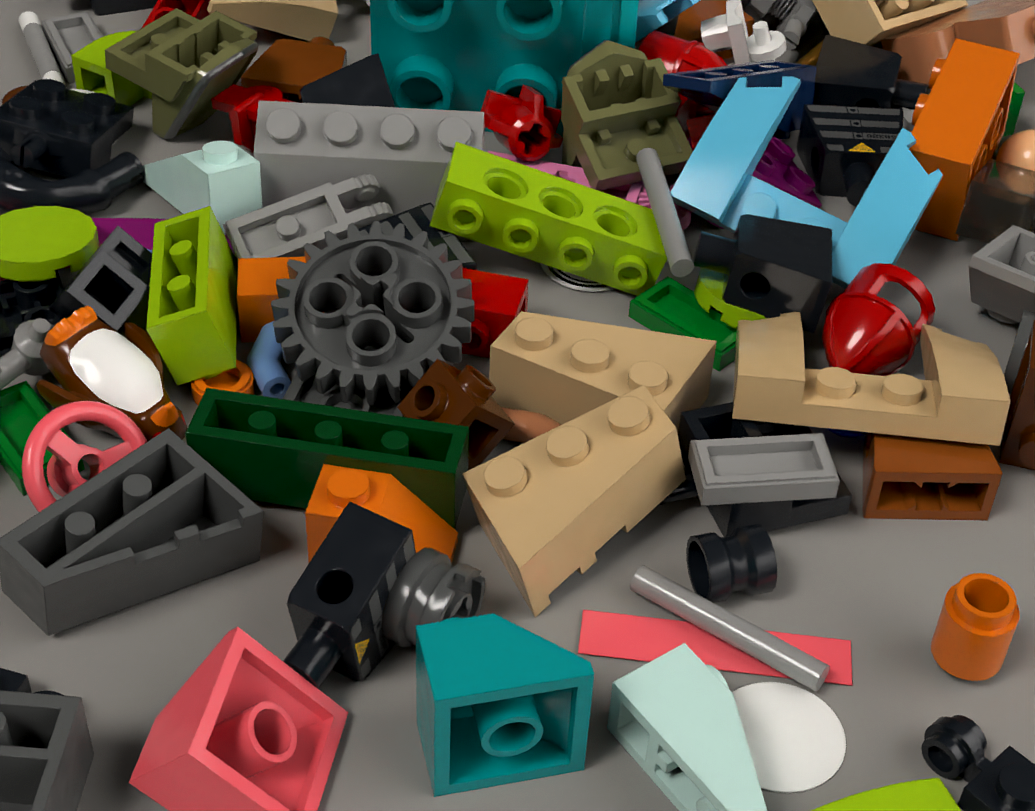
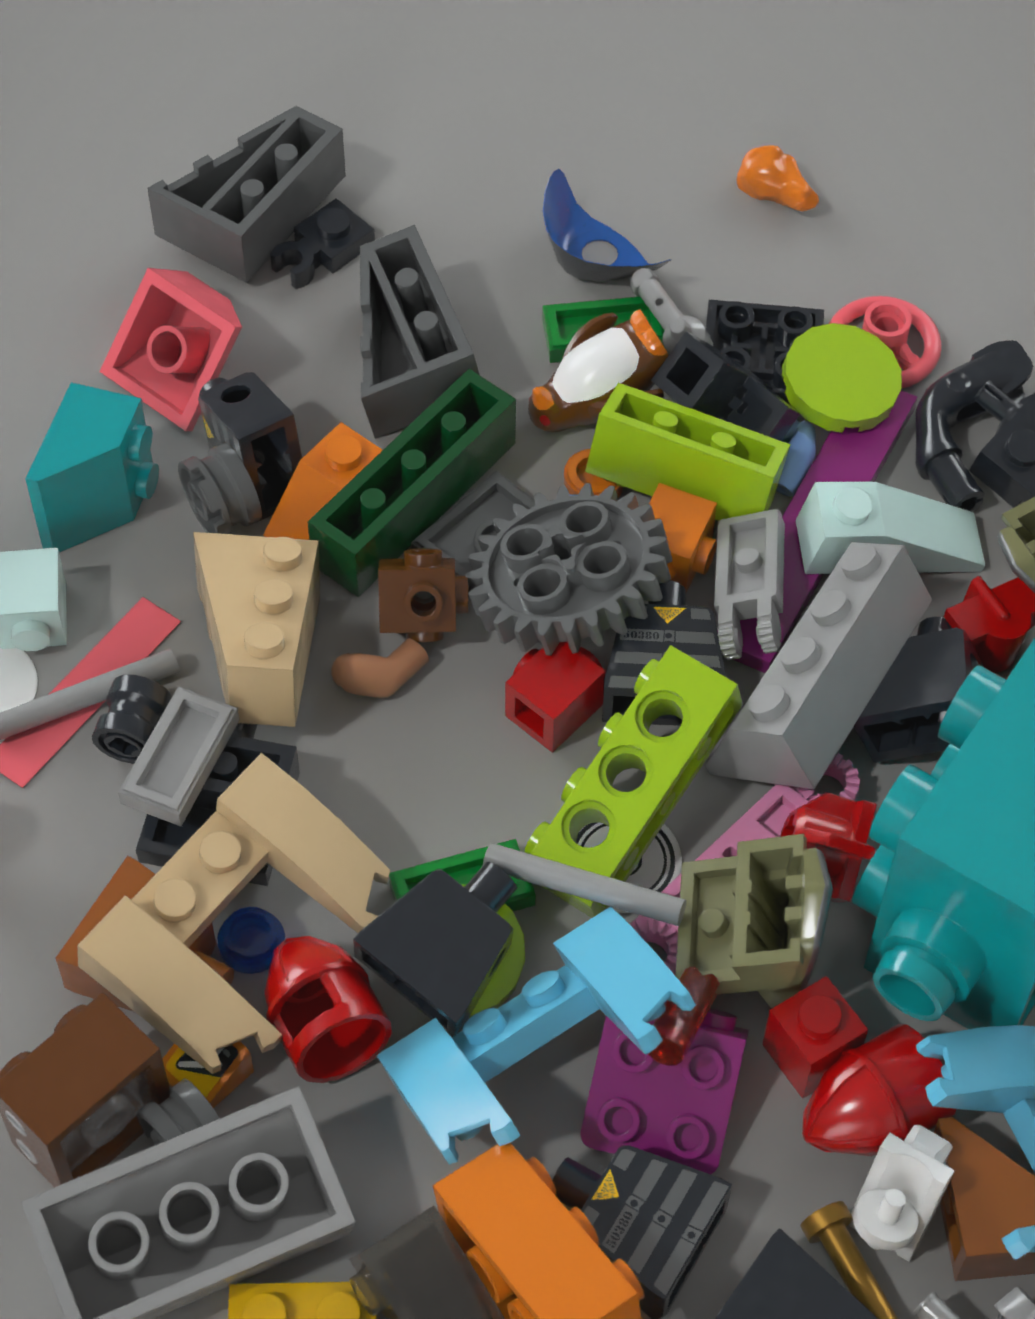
camera: 120 degrees right, 15 degrees up
(63, 465) = (518, 333): coral piece -> none
(578, 365) = (394, 731): tan wedge -> none
(712, 85) = (751, 1086): dark blue slope -> none

